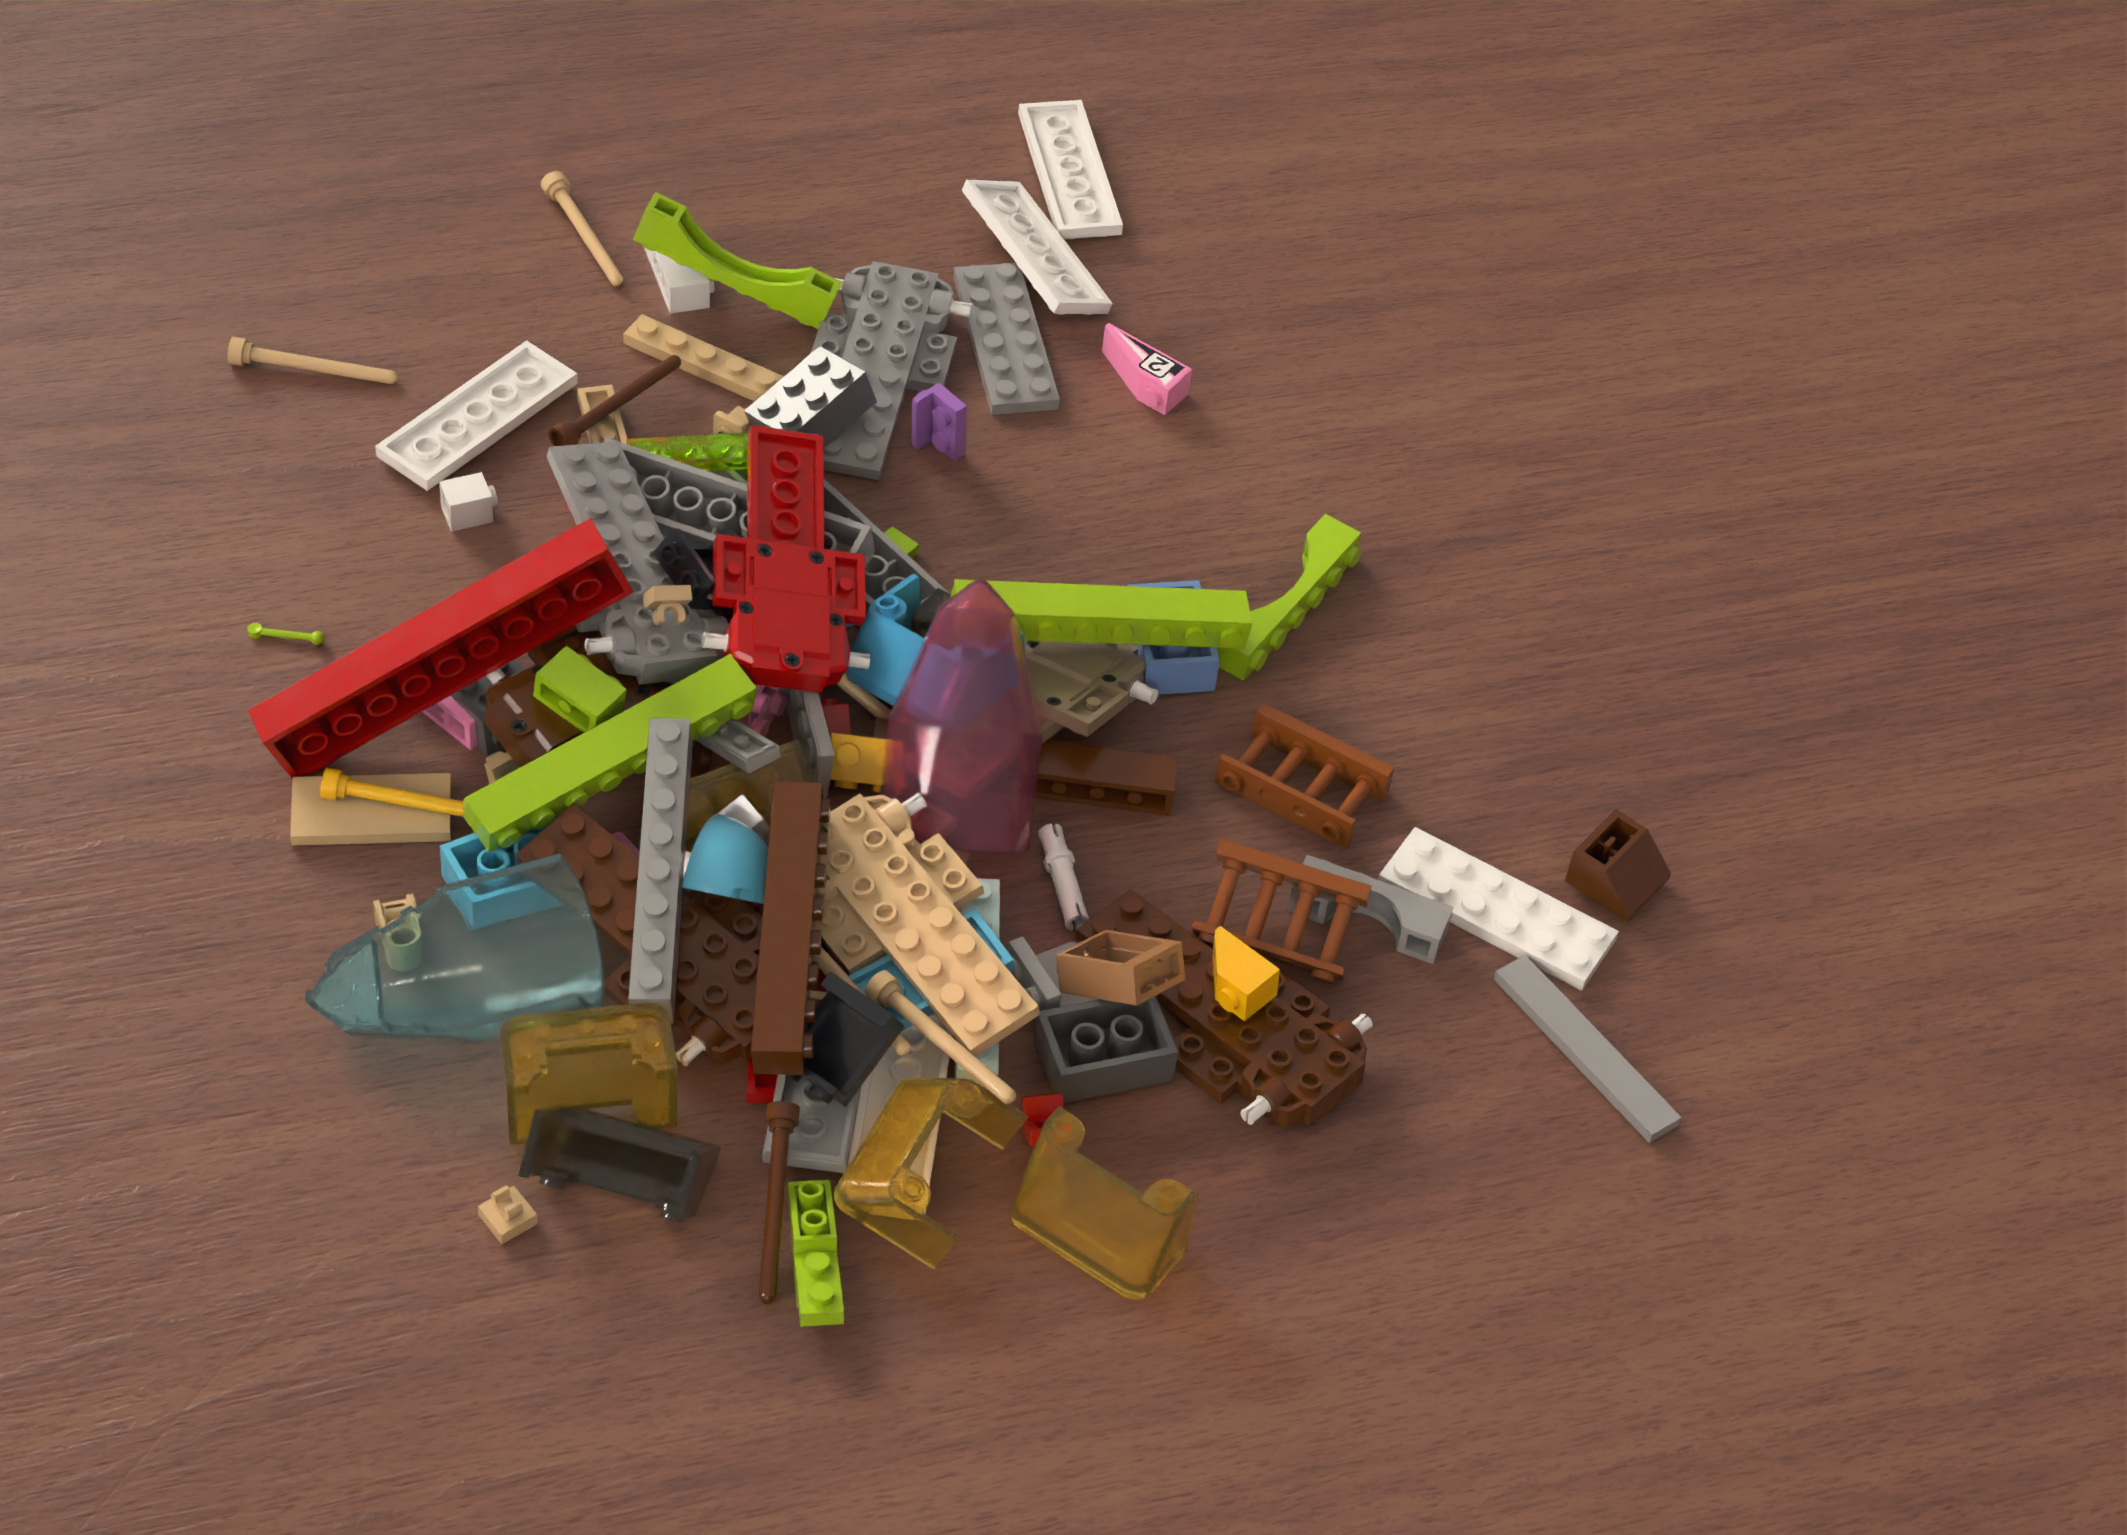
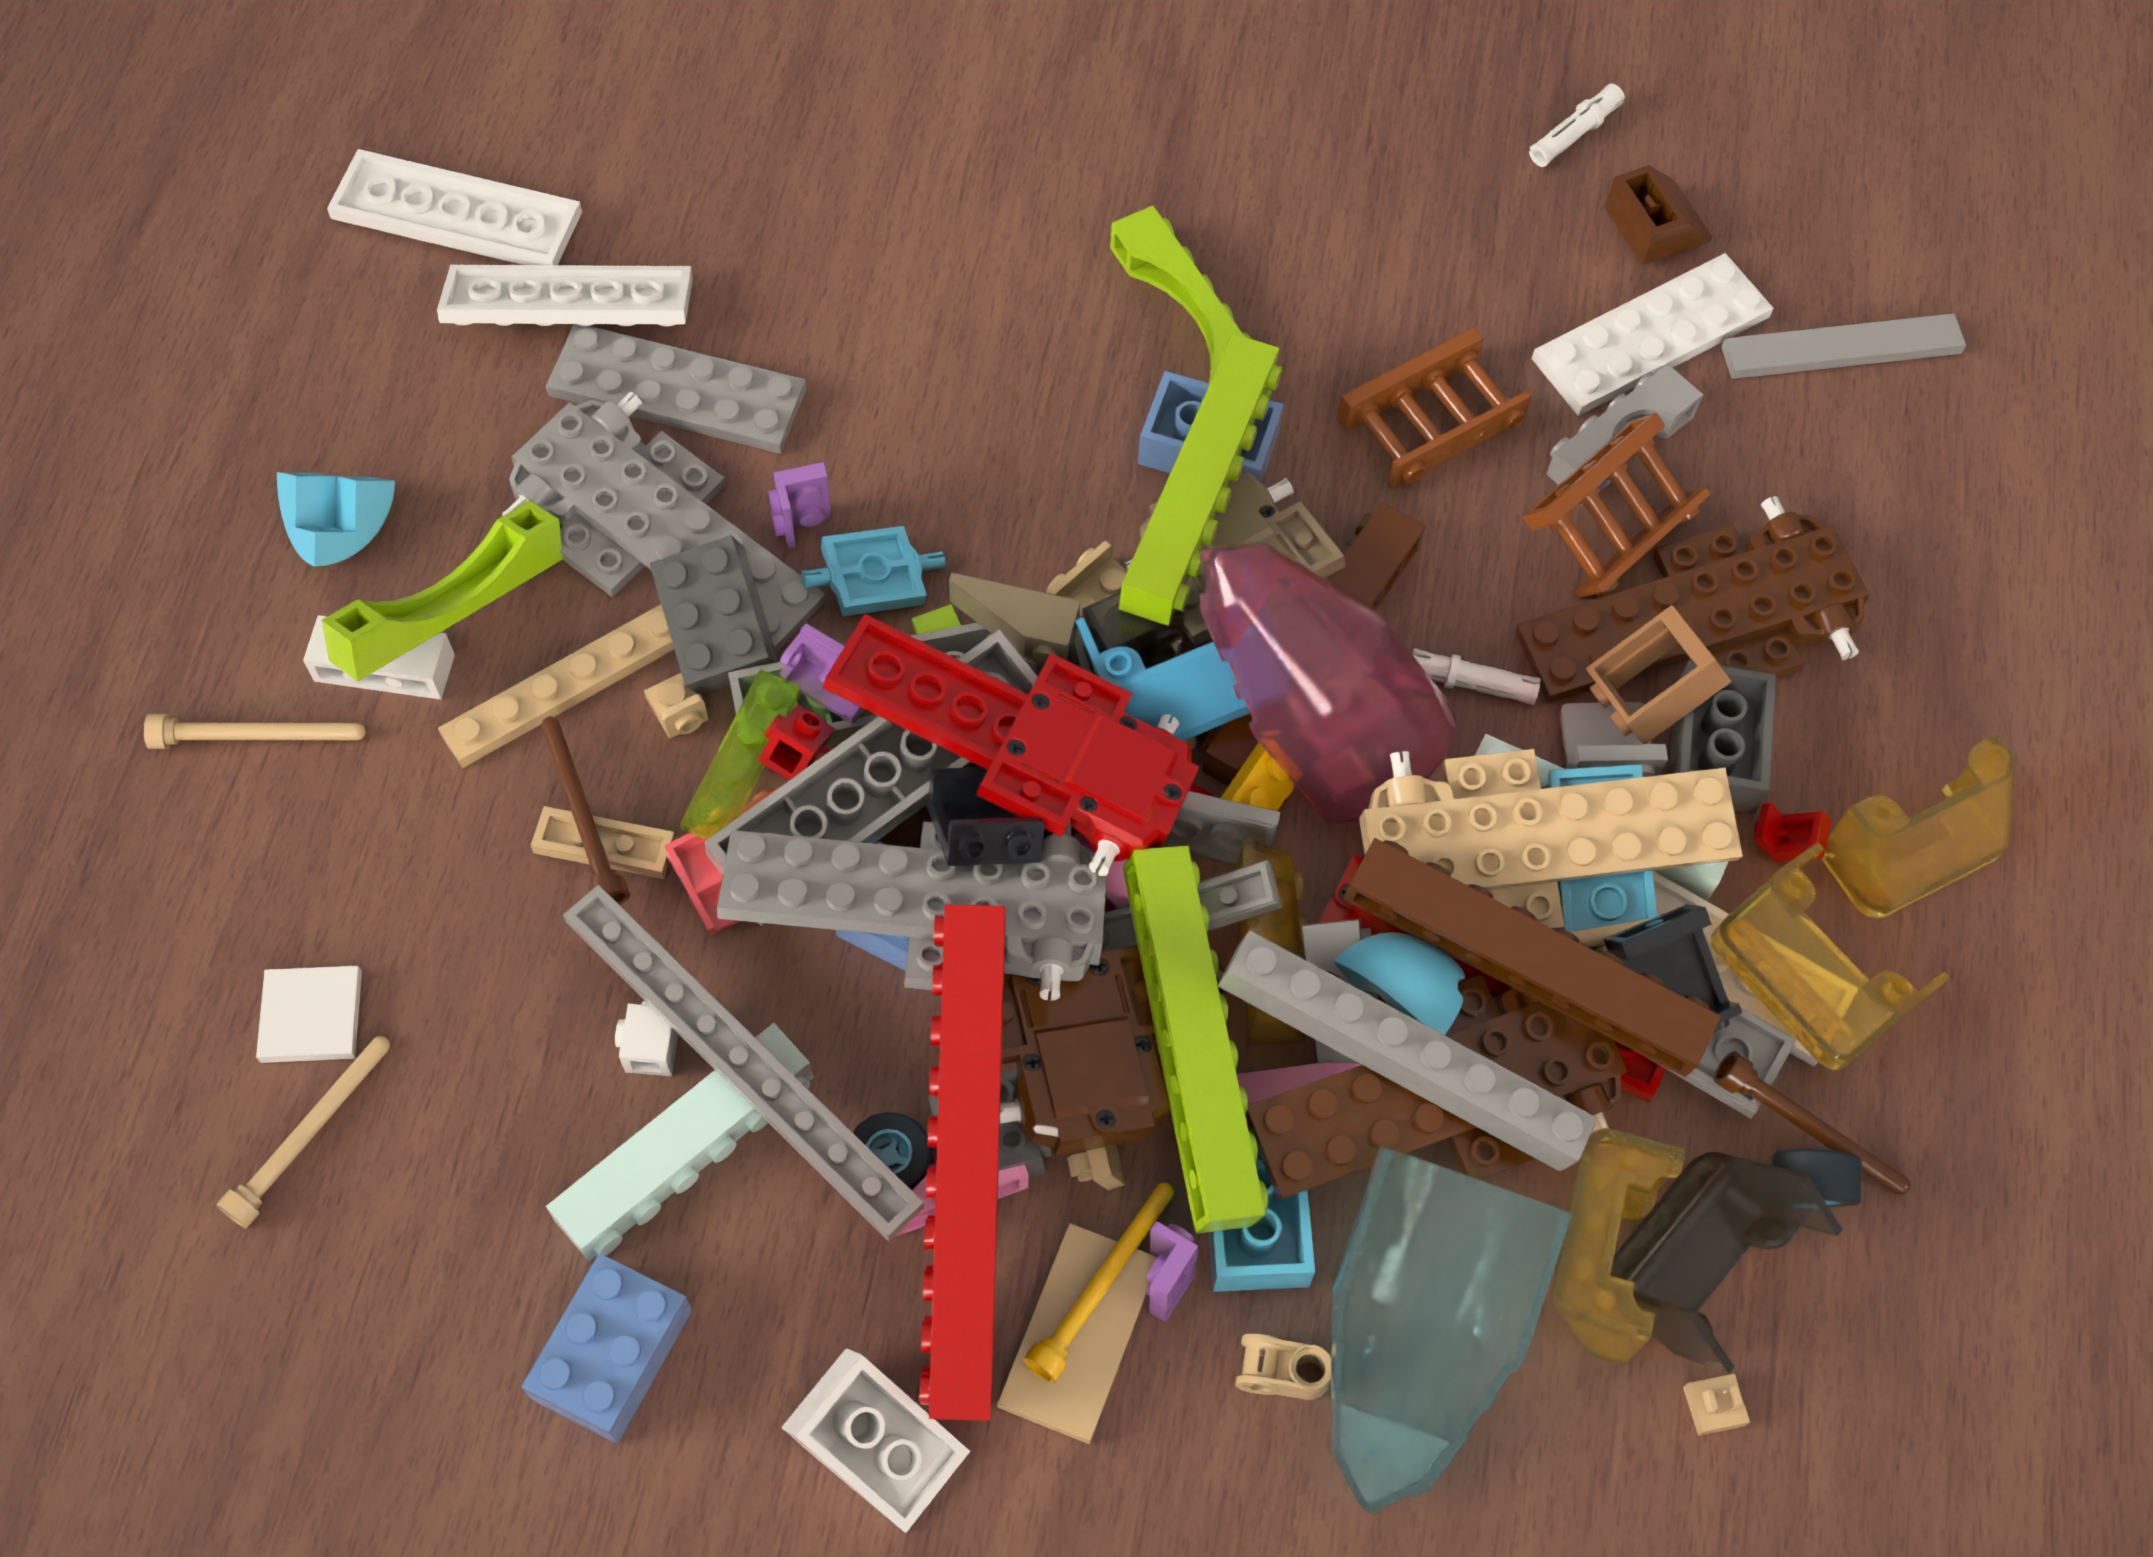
camera: 60 degrees left, 15 degrees up
(219, 725) = (876, 1439): none -> white slope
(230, 557) = (607, 1348): none -> medium blue brick
(256, 631) = (728, 1361): lime hinge -> none
(393, 540) = (665, 1156): none -> light aqua brick
(394, 335) = (309, 1014): none -> white tile
(431, 824) = (1172, 1269): none -> medium lavender bracket
(476, 415) = (507, 974): white plate -> none
(479, 513) = (745, 1063): none -> light grey plate
(579, 690) = (1102, 1030): lime brick -> none
(667, 598) = (1036, 879): tan tile -> none
(722, 460) = (795, 742): none -> red brick
(732, 1217) = (1833, 1172): none -> black wheel
(773, 200) = (332, 514): none -> medium azure brick
(815, 1253) = (1886, 1122): lime slope -> none
(886, 992) = (1624, 902): tan piece -> none
(908, 554) = (1028, 618): none -> dark tan slope
(916, 489) = (873, 570): none -> medium azure plate
(1146, 371) = (809, 283): bright pink slope -> none
(1241, 976) = (1703, 578): yellow slope -> none
(1678, 791) = (1587, 117): none -> white pin

